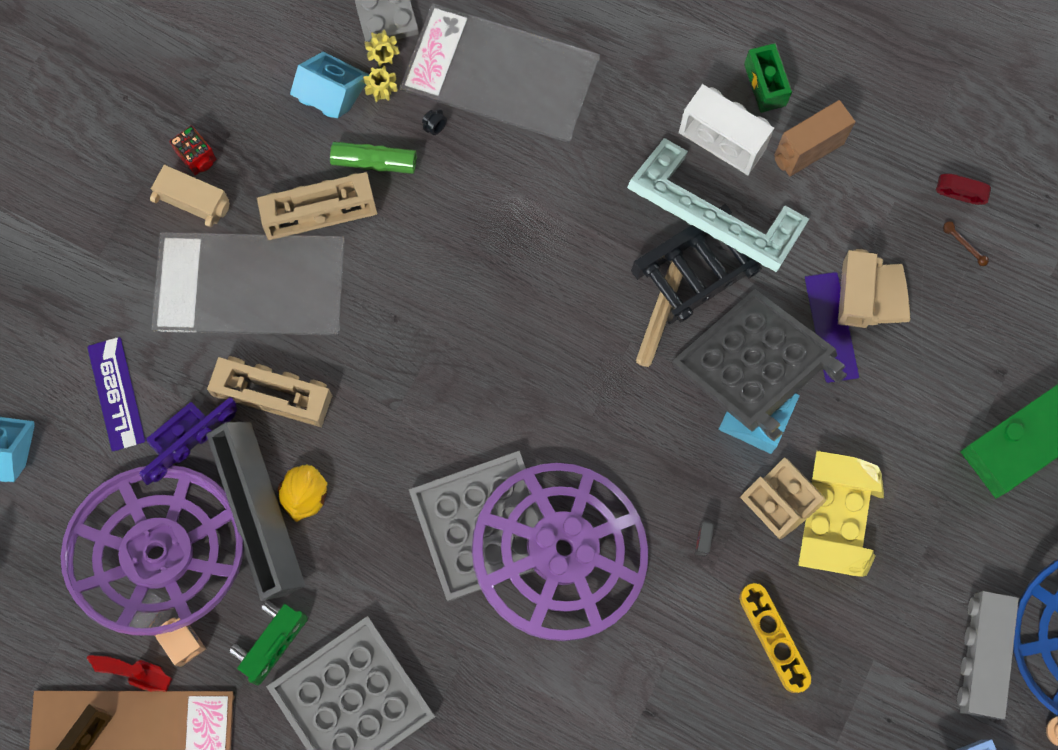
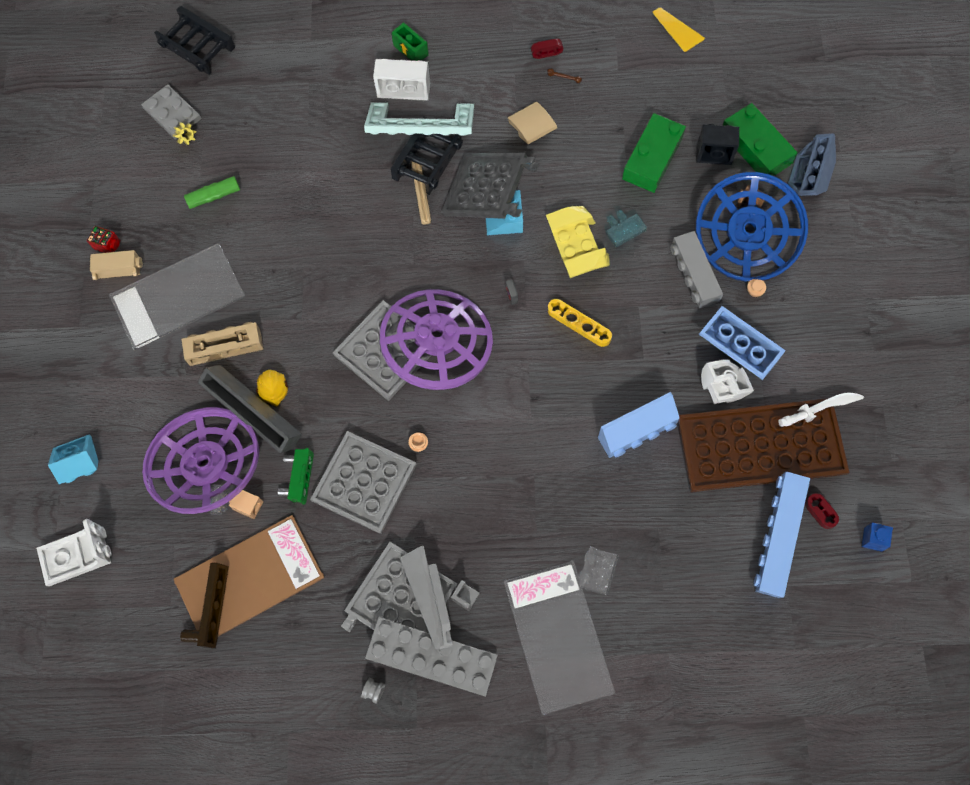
camera: 25 degrees left, 5 degrees down
(116, 394) = (131, 394): dark purple sticker -> none
(141, 674) = (231, 535): red piece -> none
(182, 434) = (183, 393): dark purple bracket -> none
(316, 205) = (193, 232): tan brick -> none
(328, 84) = (163, 168): medium azure slope -> none
(380, 84) = (194, 152): light yellow gear -> none
(434, 121) = (236, 157): black plate -> none
(455, 686) = (418, 442): none -> light nougat plate
(500, 72) = (259, 115): clear piece -> none
(783, 498) = (542, 248): tan slope -> none
(814, 138) = (452, 60): medium nougat brick -> none
(824, 303) = (511, 144): dark purple sticker -> none
(858, 288) = (520, 122): tan brick -> none
(921, 535) = (626, 229): none -> clear light blue hinge

